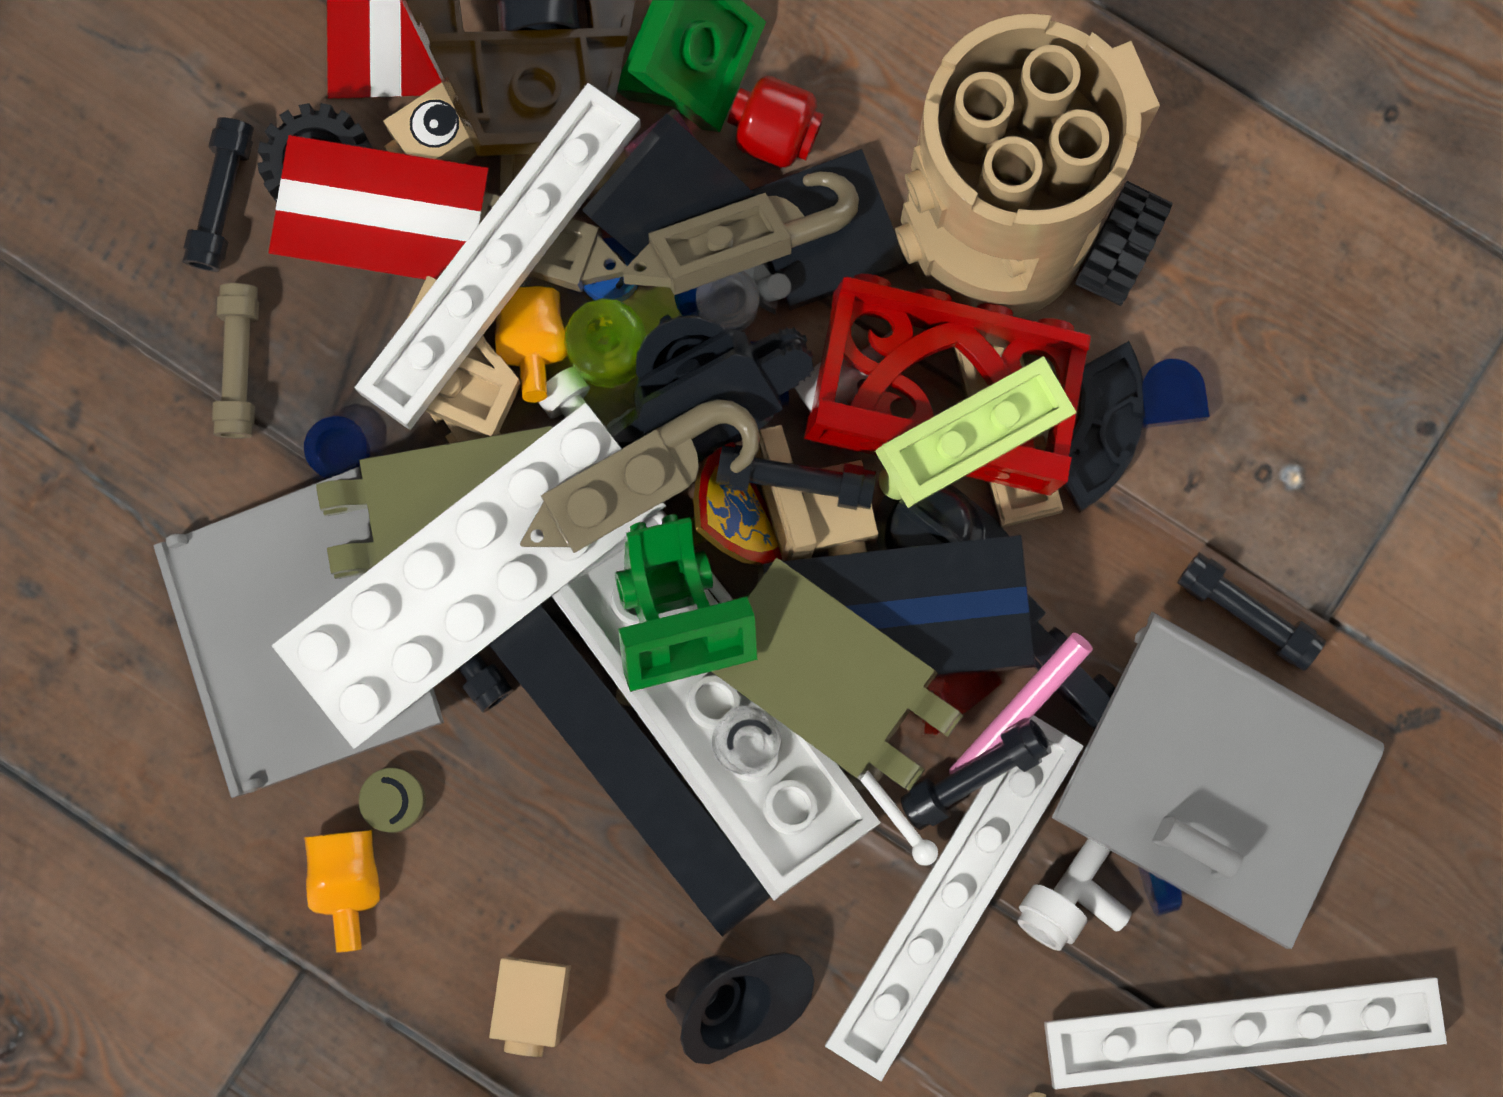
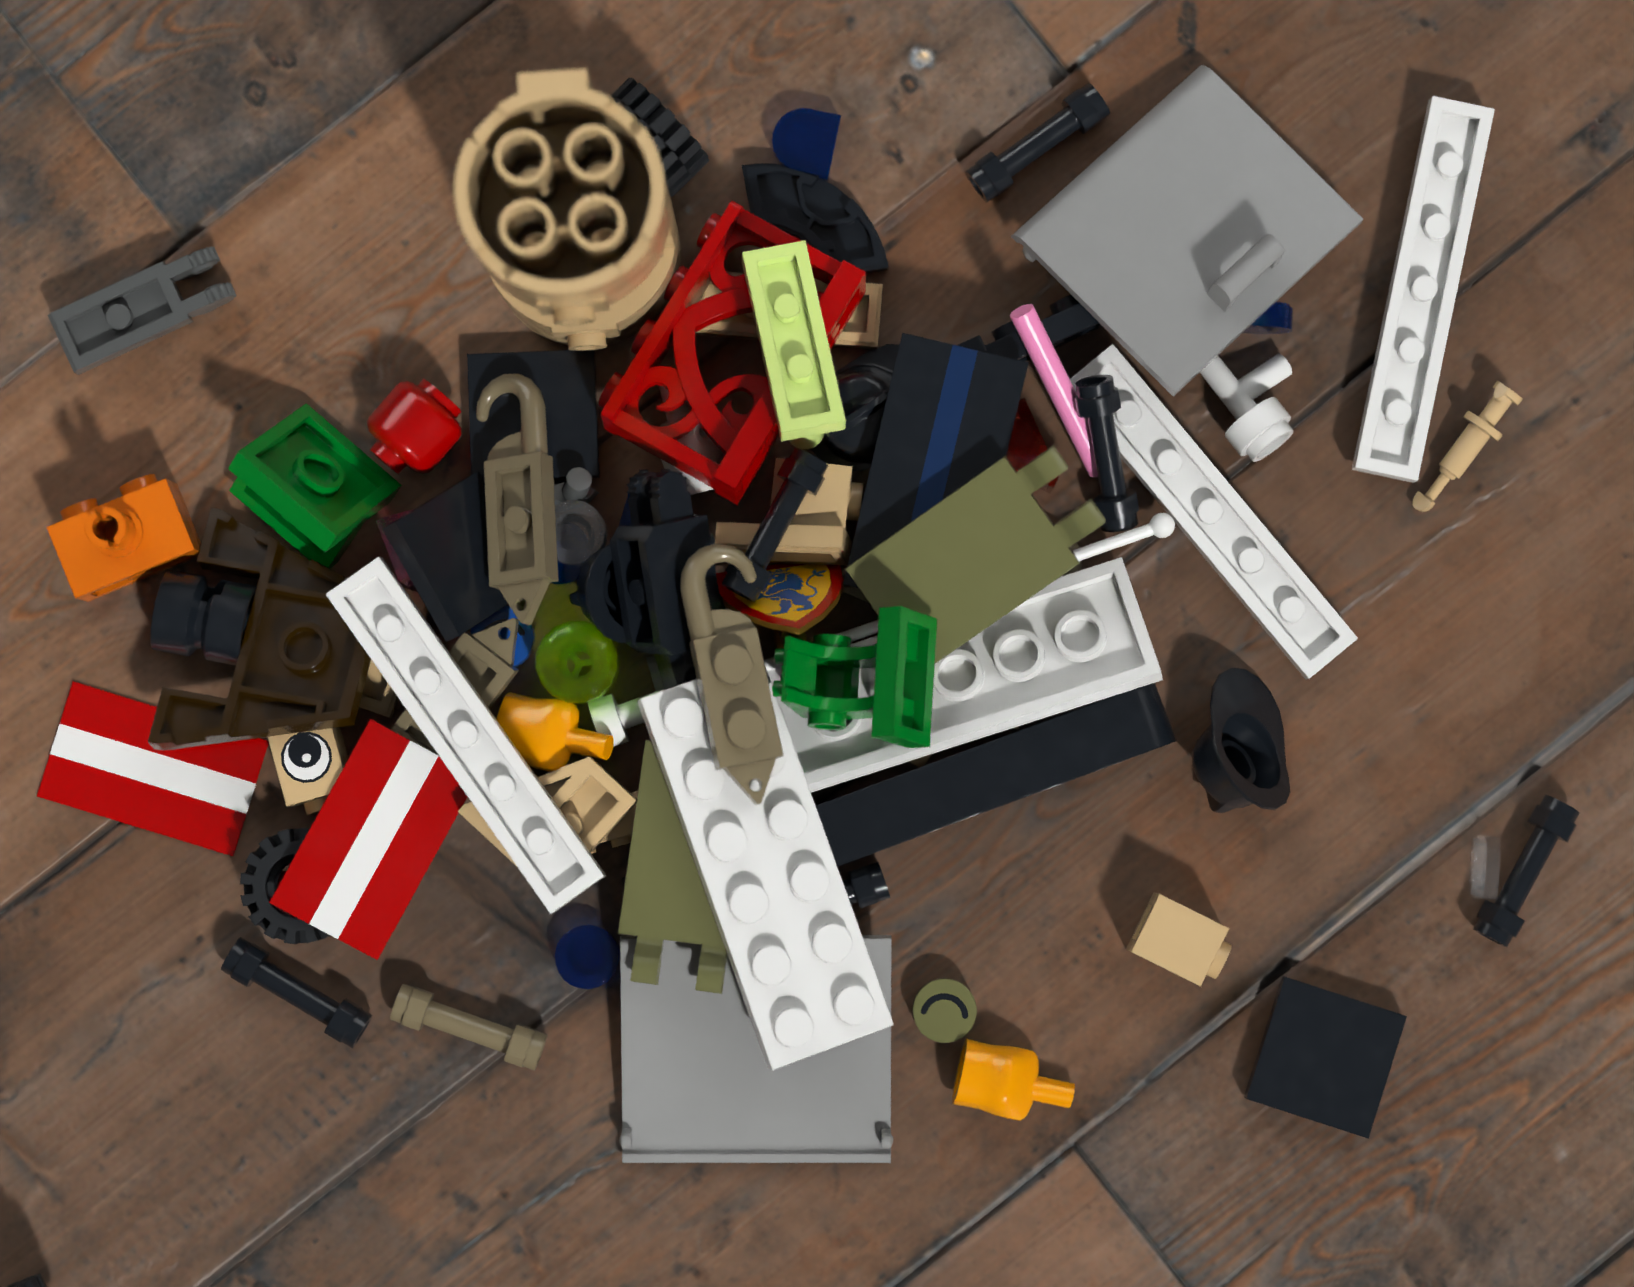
camera: 75 degrees left, 5 degrees up
(746, 740) = (1006, 655): clear tile -> none

